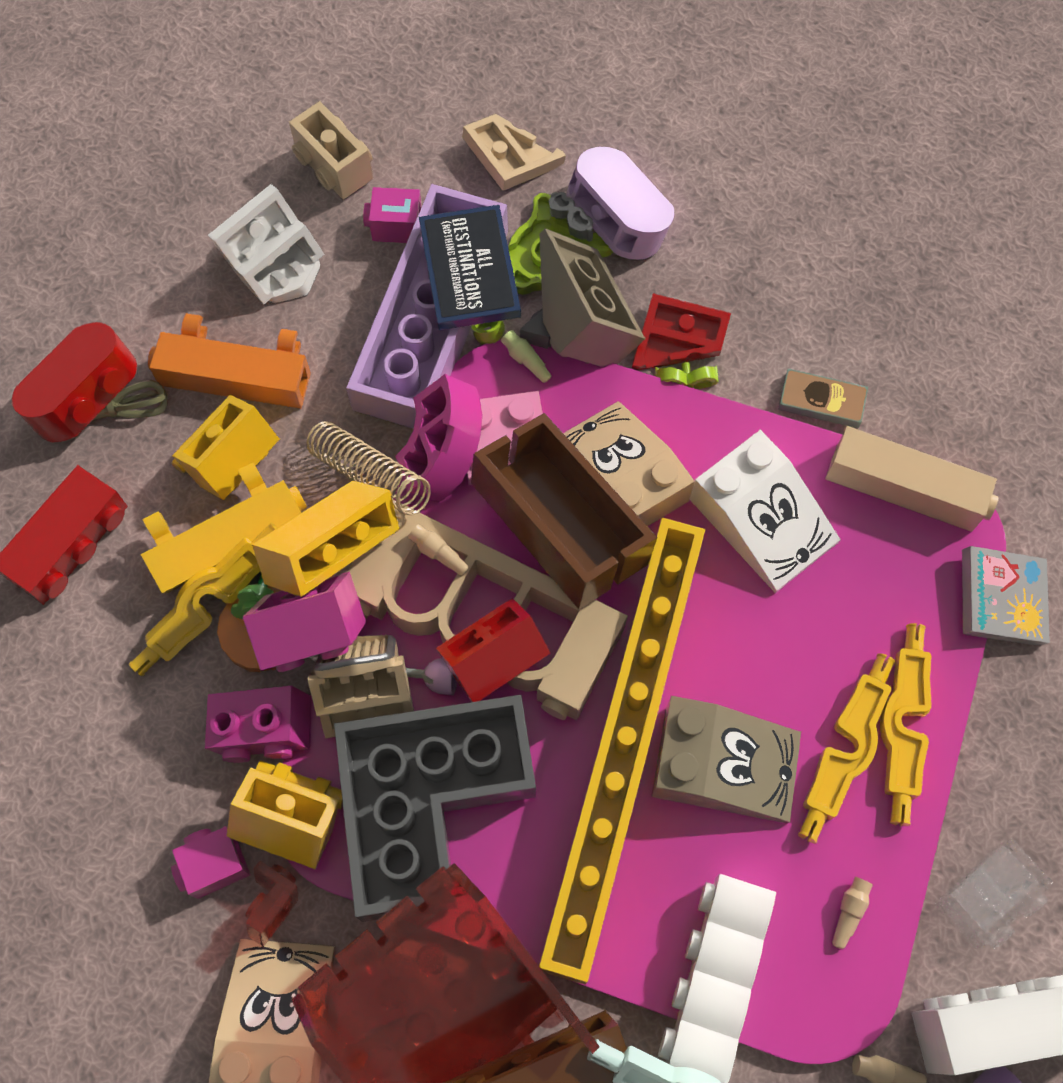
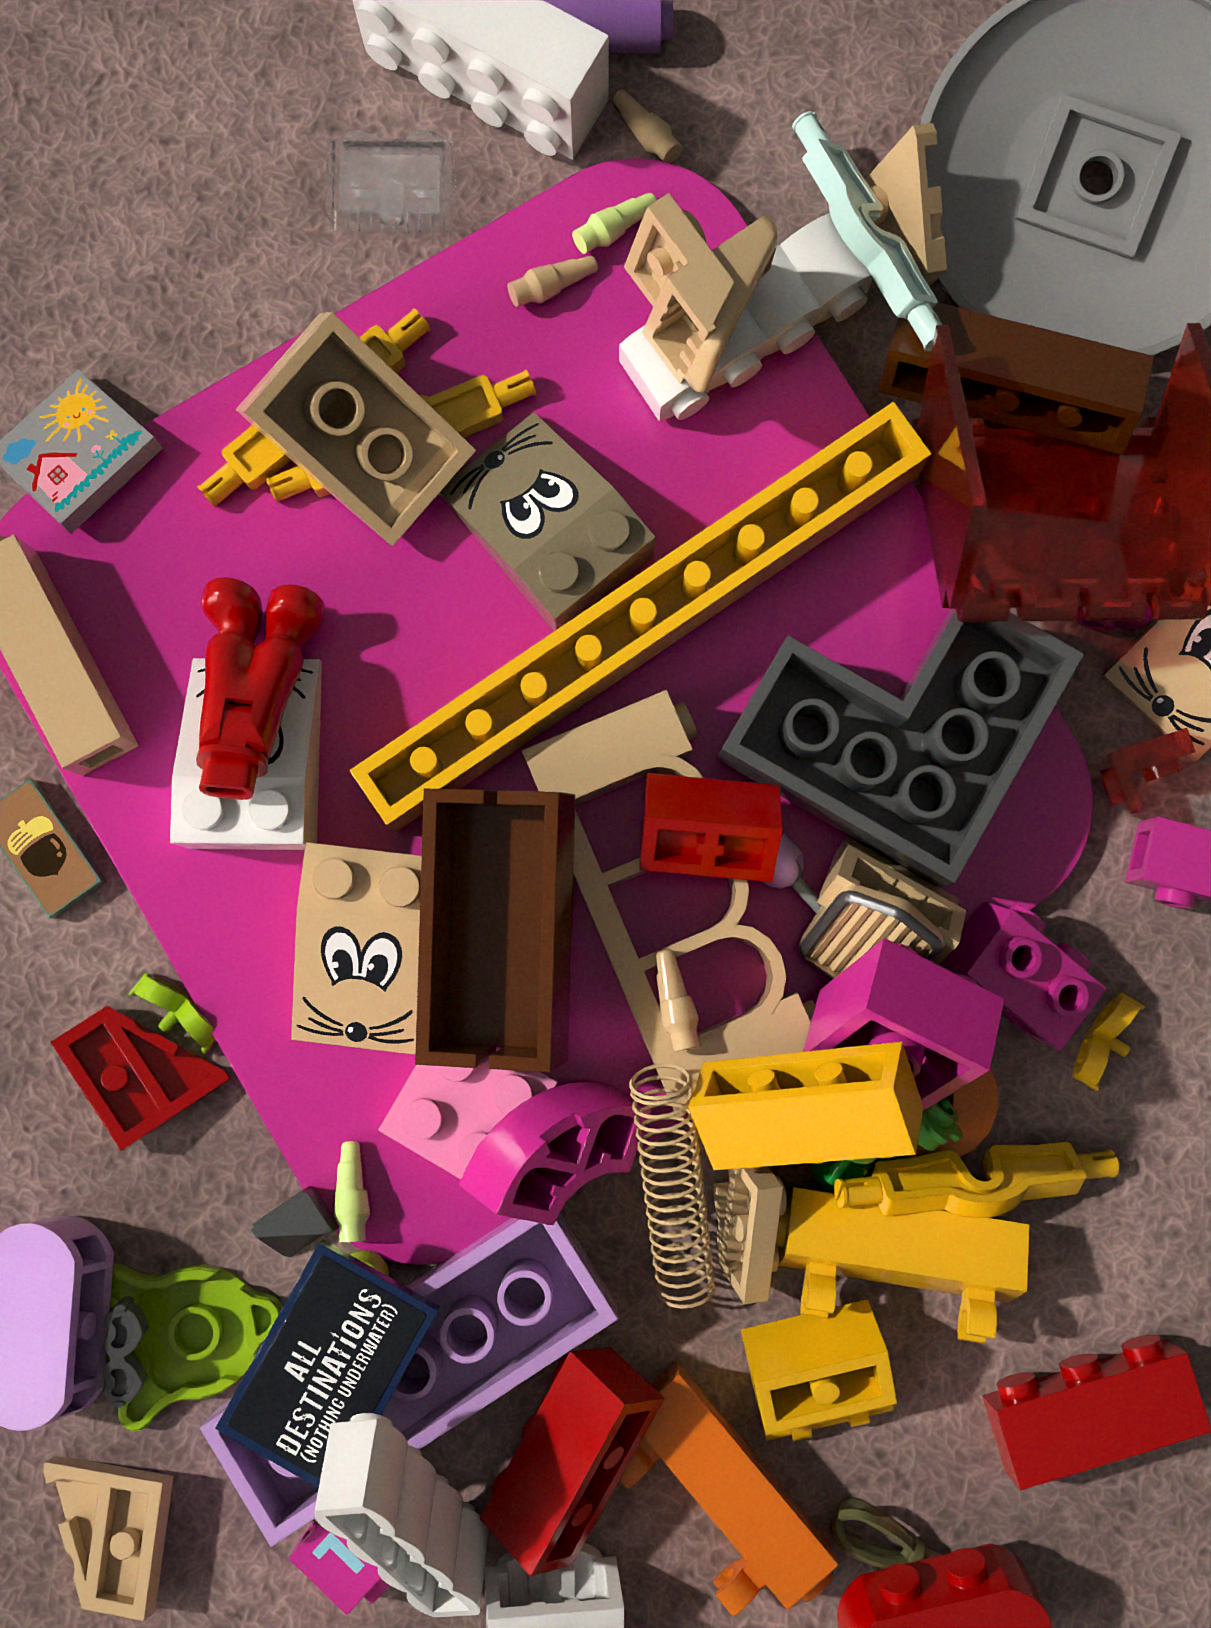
camera: 140 degrees left, 15 degrees up
(188, 733) = (1101, 1038): none -> yellow piece
(284, 813) = (1076, 834): yellow brick -> none
(305, 477) = (747, 1229): none -> tan wing
(320, 319) = (570, 1459): none -> red brick
(380, 230) = (402, 1517): none -> white brick
(584, 303) = (221, 1204): dark tan slope -> none
(745, 936) = (695, 289): none -> tan piece
(798, 537) = (248, 682): none -> red piece
(850, 978) = (610, 223): none -> yellowish green piece
(874, 716) = (356, 427): none -> tan slope

